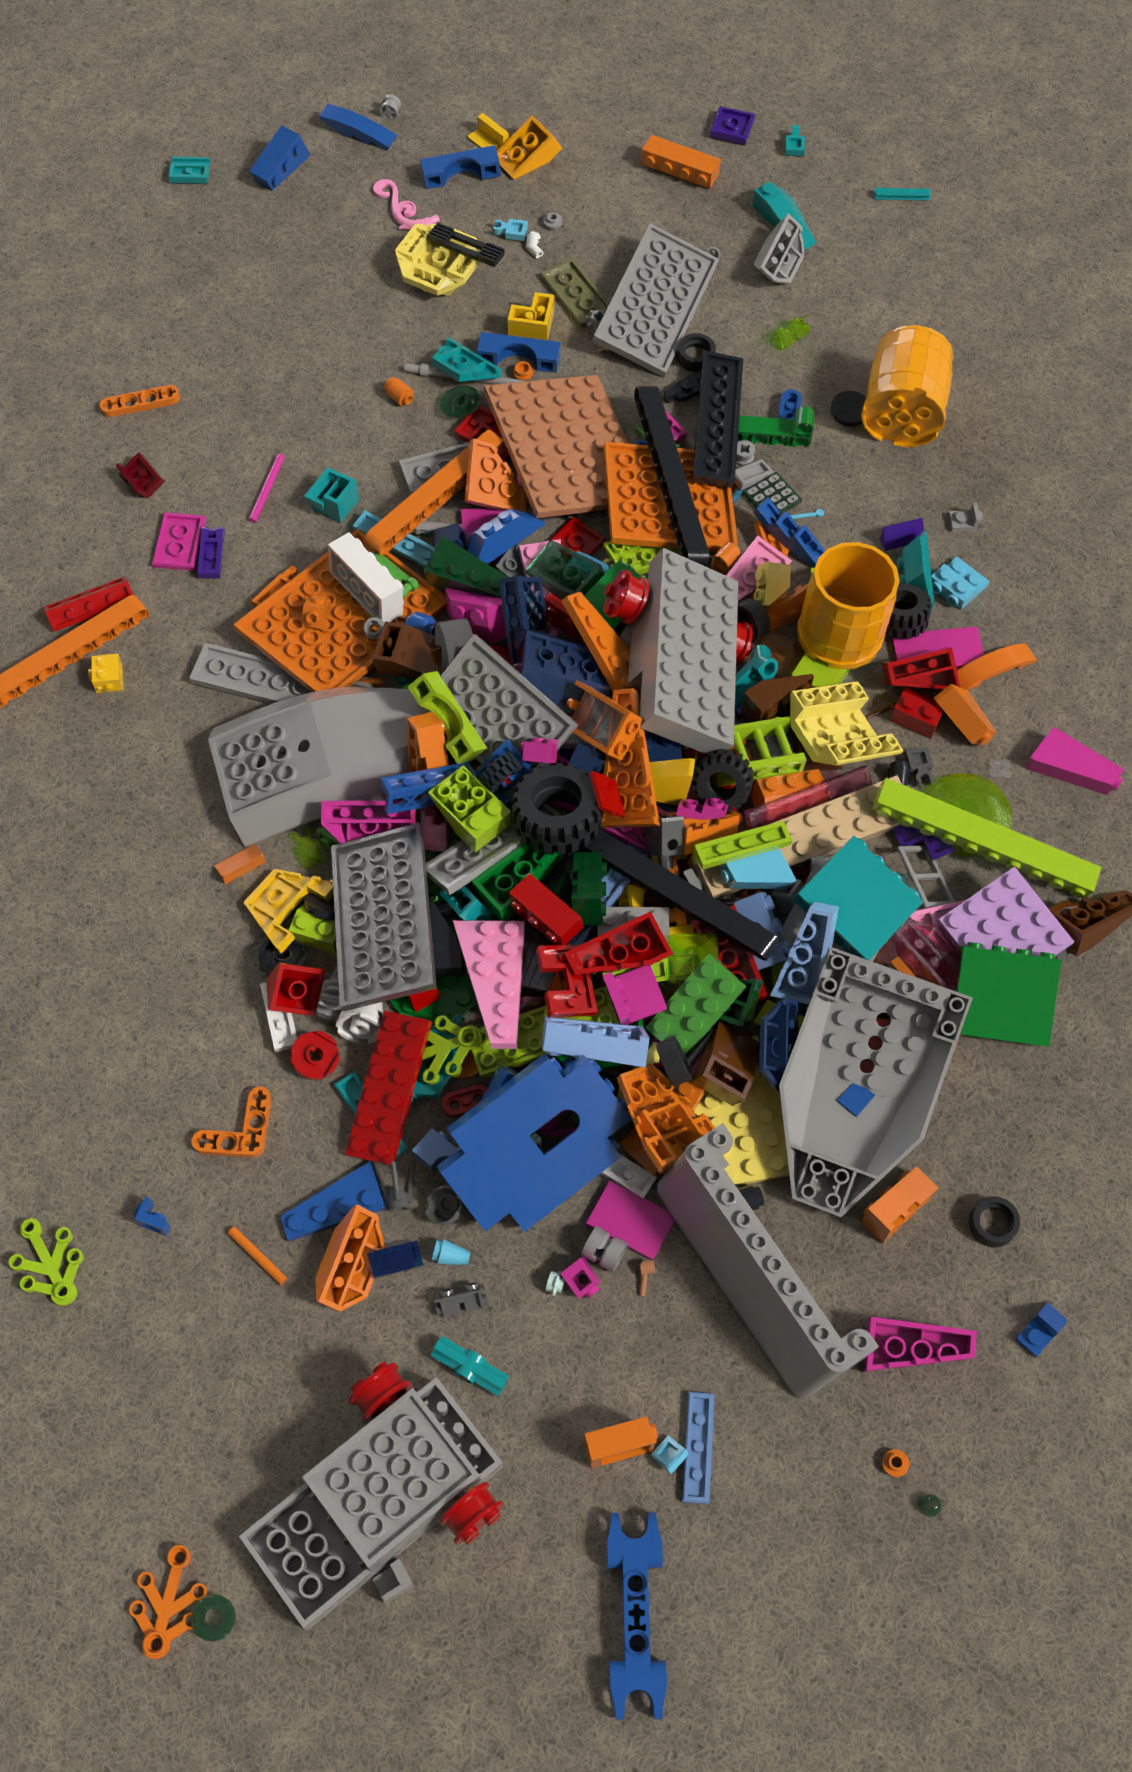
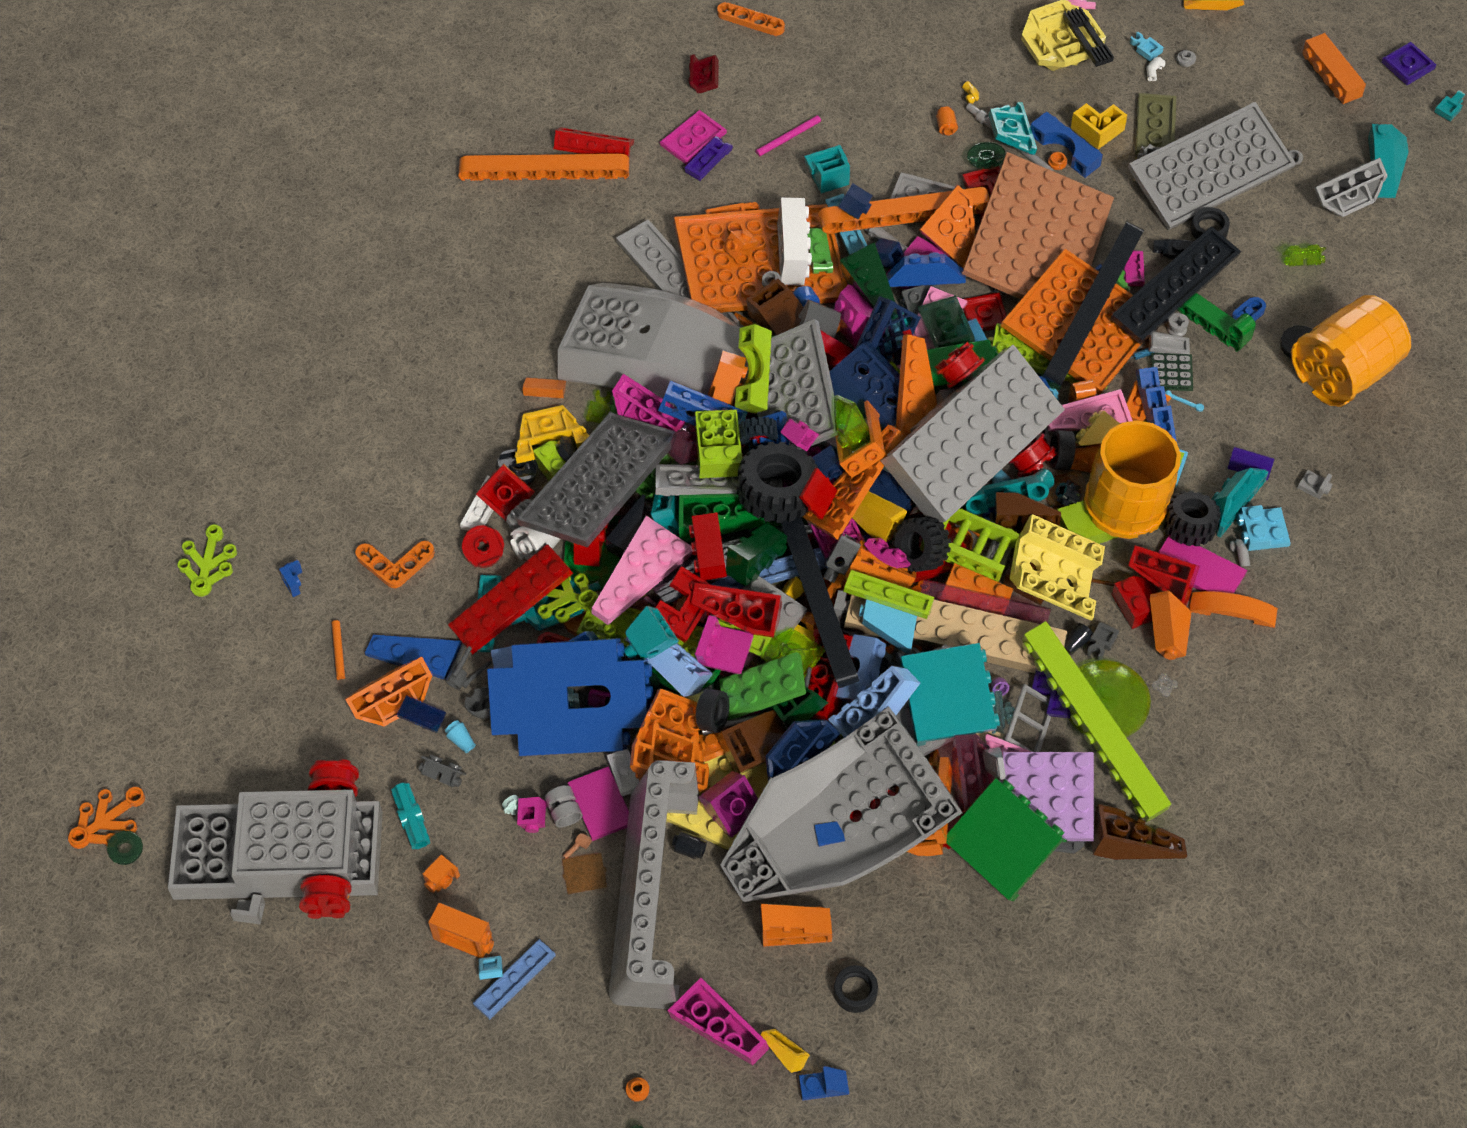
camera: 40 degrees right, 5 degrees down
(106, 673) = (563, 199): yellow head -> none
(396, 507) = (856, 201): none -> dark blue brick
(401, 355) = (972, 91): none -> yellow arm
(547, 1402) = (440, 874): none -> orange brick
(572, 1032) = (649, 634): none -> teal torso
(585, 710) = (849, 424): none -> clear neon green slope
(637, 1669) = (350, 1078): blue piece -> none
(672, 1297) = (584, 873): none -> clear orange piece
(754, 1133) = (730, 802): none -> magenta slope
(789, 654) = (1068, 493): none -> black gear
(947, 933) = (994, 762): none -> light grey slope
(961, 613) = (1243, 554): none -> light grey arm
(990, 1324) = (787, 1051): none -> yellow slope
(1074, 763) = (1227, 717): dark pink slope -> none

